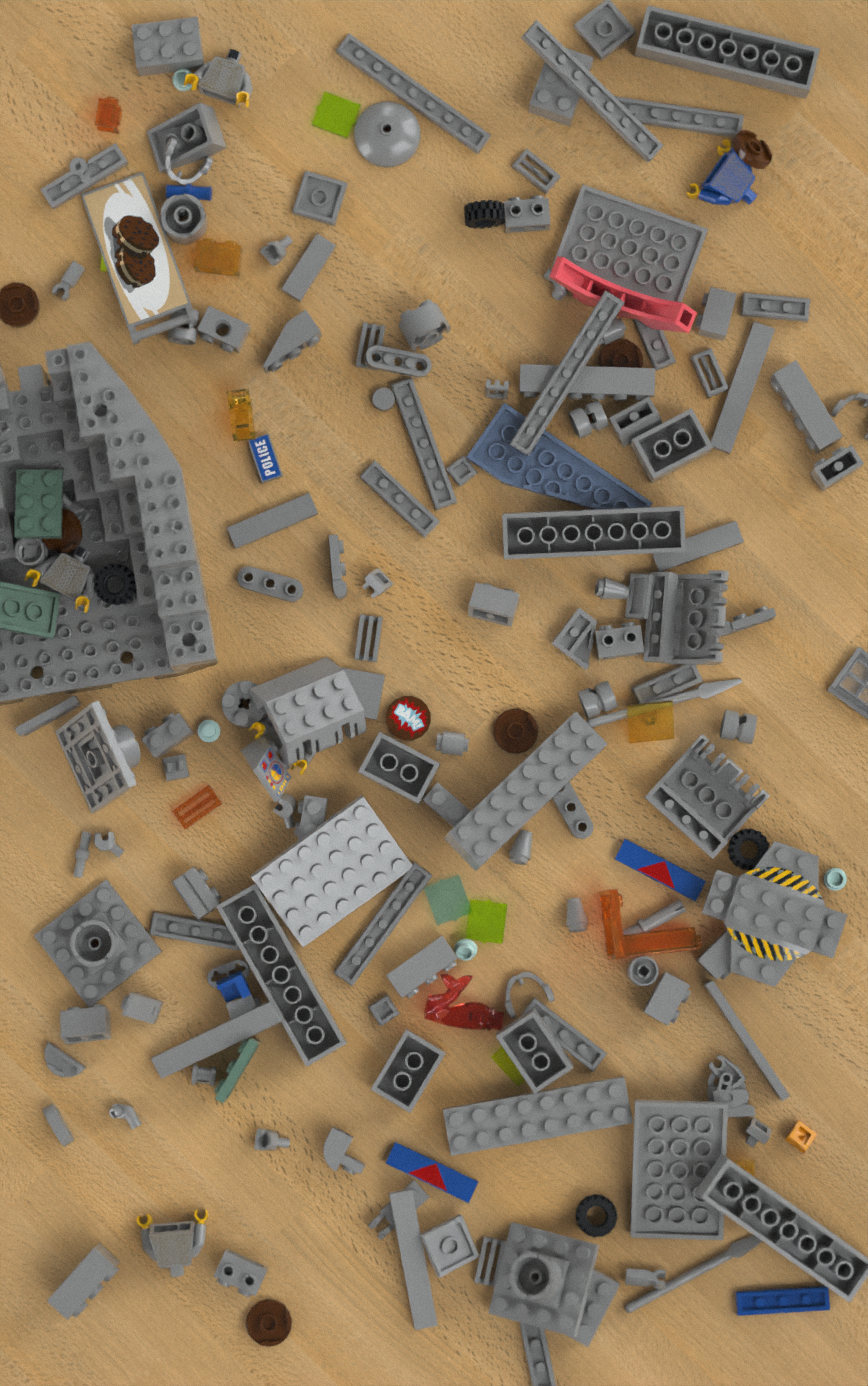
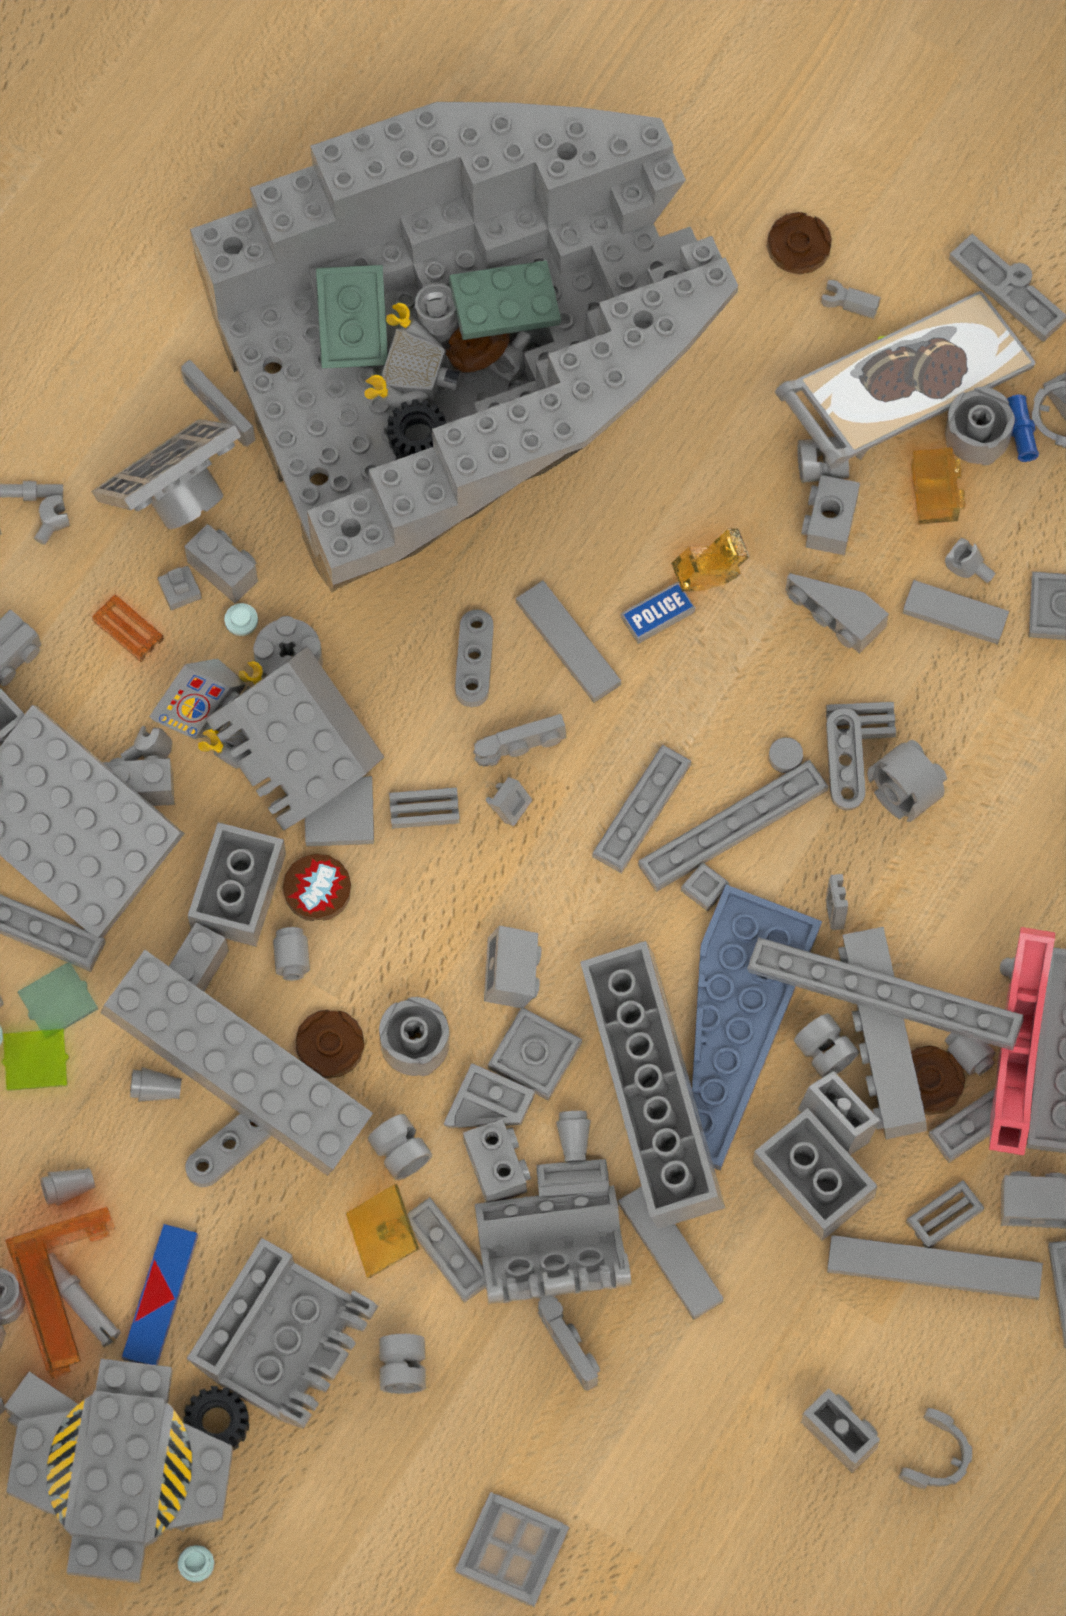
camera: 75 degrees right, 15 degrees down
(527, 662) = (403, 1021): none -> light grey brick
(550, 602) = (535, 1053): none -> light grey tile
(703, 691) = (448, 1304): light grey piece -> none
(806, 407) = (927, 1367): light grey brick -> none

